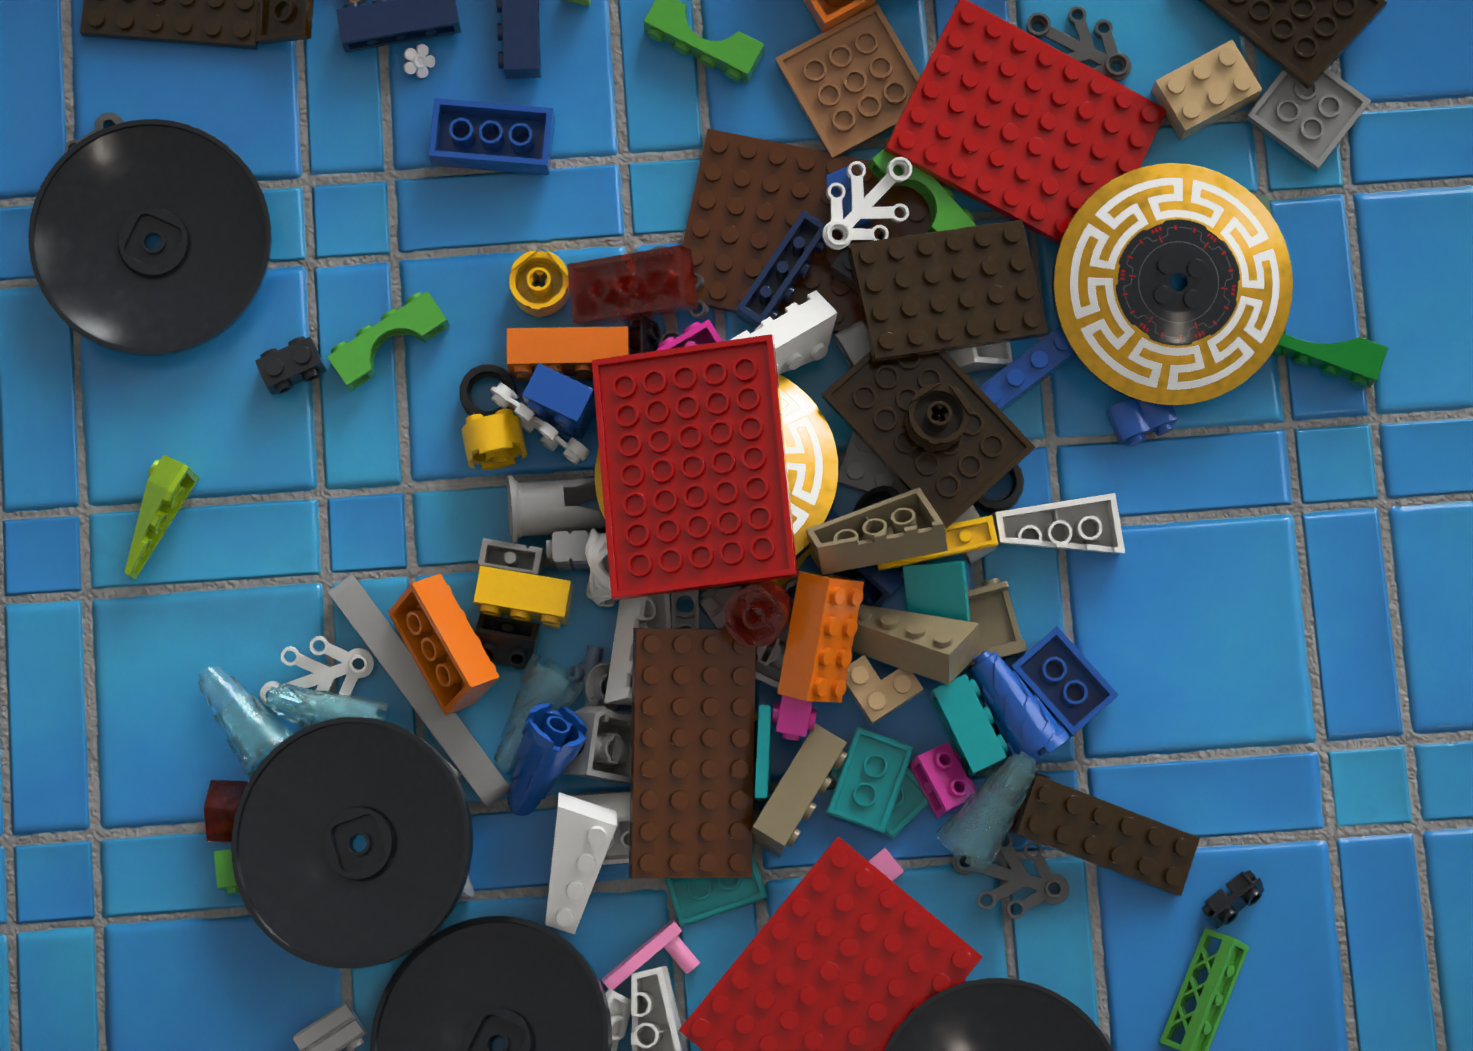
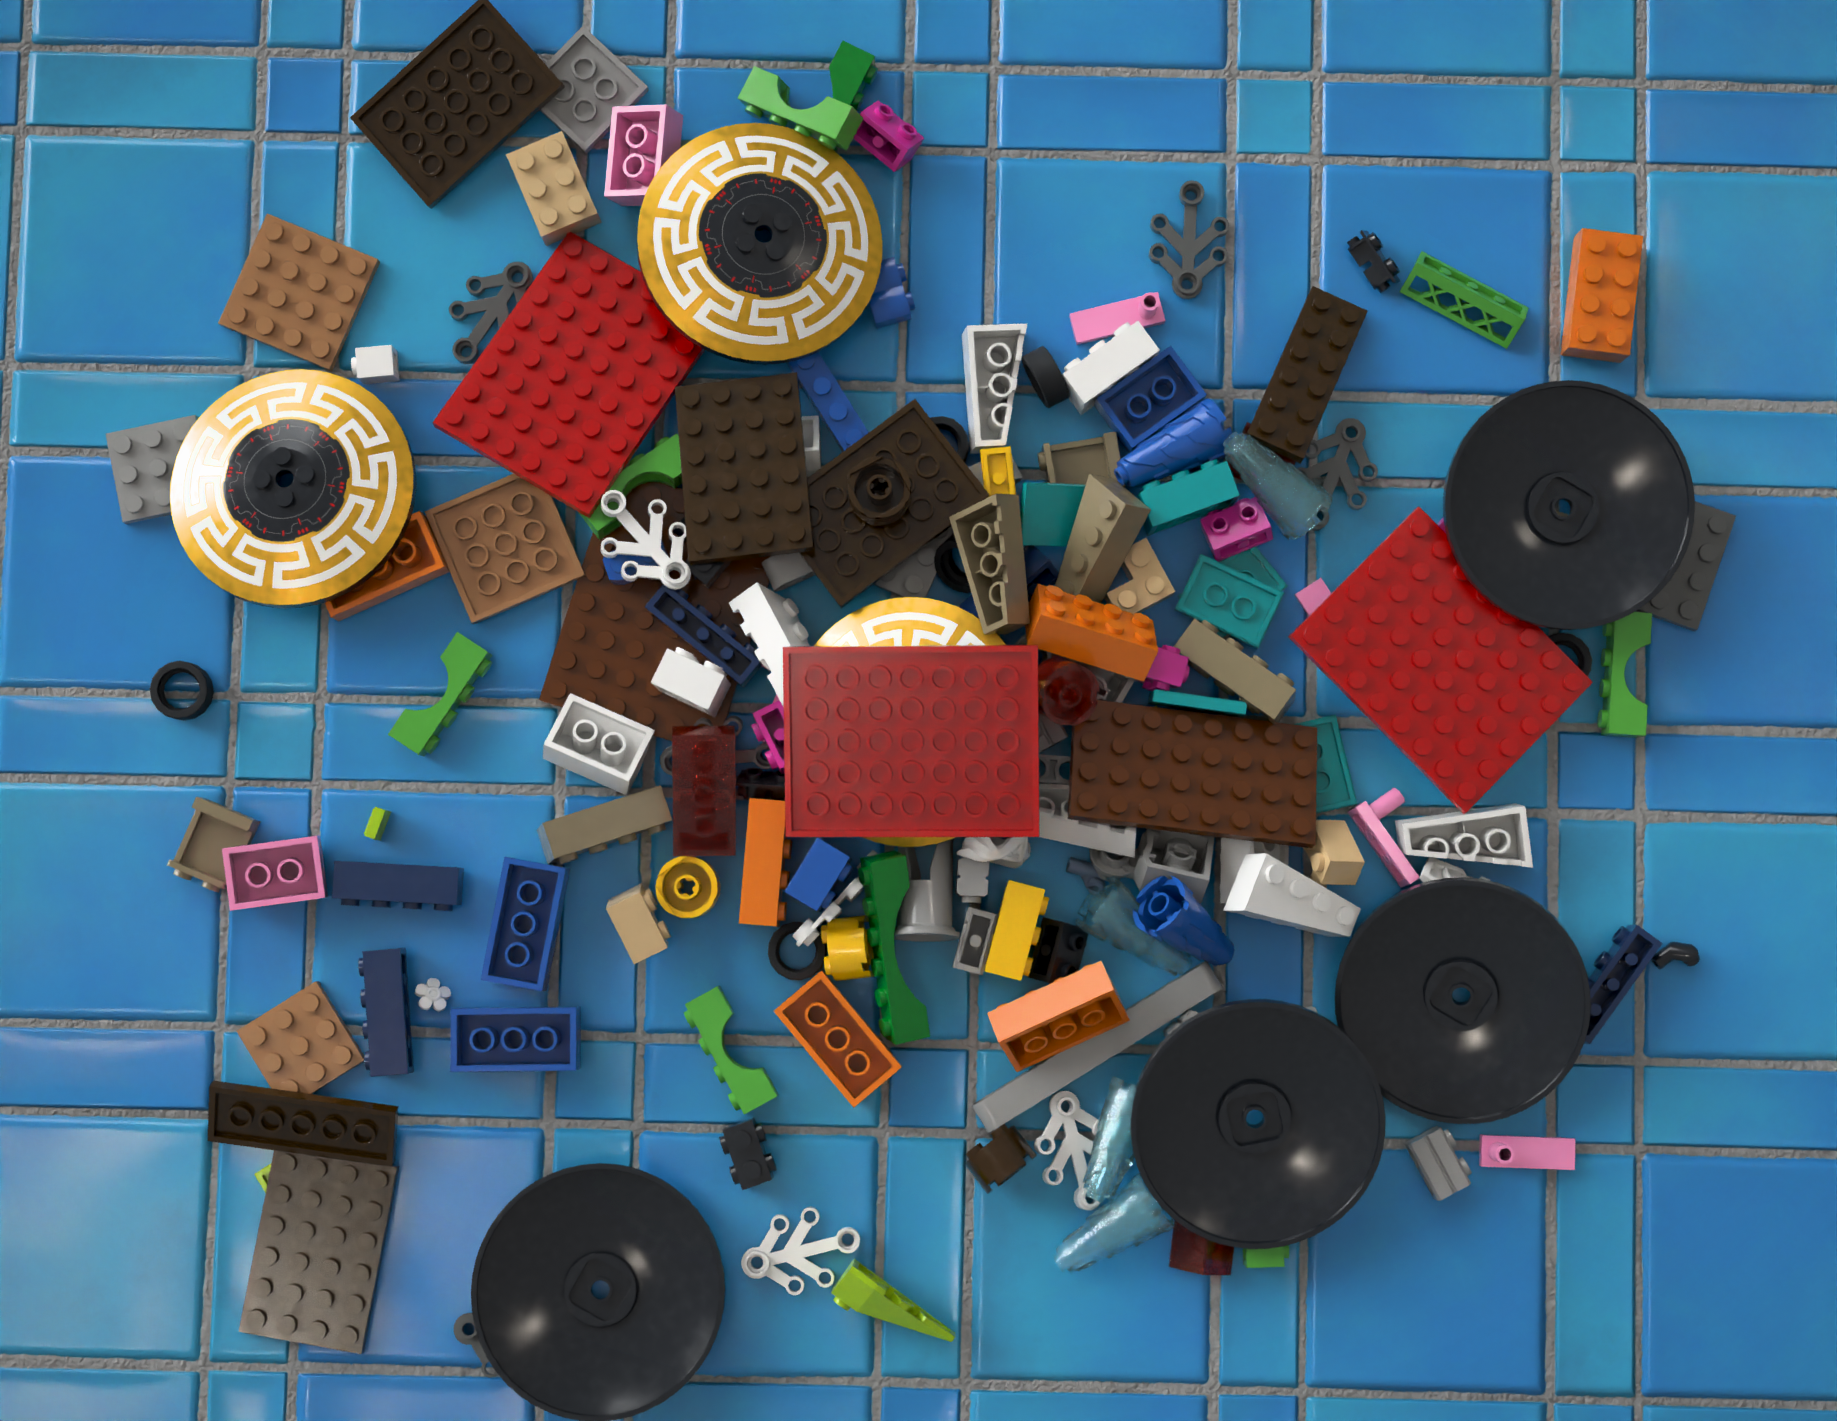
camera: 85 degrees left, 5 degrees up
(200, 421) = (795, 1252): none -> white plant
(303, 602) = (999, 1158): none -> dark brown brick
(382, 139) = (515, 1039): none -> blue brick
(406, 438) = (838, 1038): none -> orange brick
(499, 236) = (636, 922): none -> tan brick
(555, 464) = (885, 885): none -> green arch
(592, 199) = (604, 824): none -> dark tan wedge
(626, 901) = (1335, 855): none -> tan brick
(669, 186) = (597, 744): none -> white slope
(734, 259) = (691, 682): none -> white brick
(1074, 576) = (1045, 377): none -> black tyre
(1092, 634) = (1108, 364): none -> white brick
(1143, 646) = (1105, 319): none -> bright pink piece
(1225, 710) = (1188, 246): none -> dark grey plant
(1258, 162) = (638, 147): none -> bright pink brick
(1298, 400) = (887, 136): none -> dark pink brick
(1304, 338) = (829, 121): none -> bright green arch

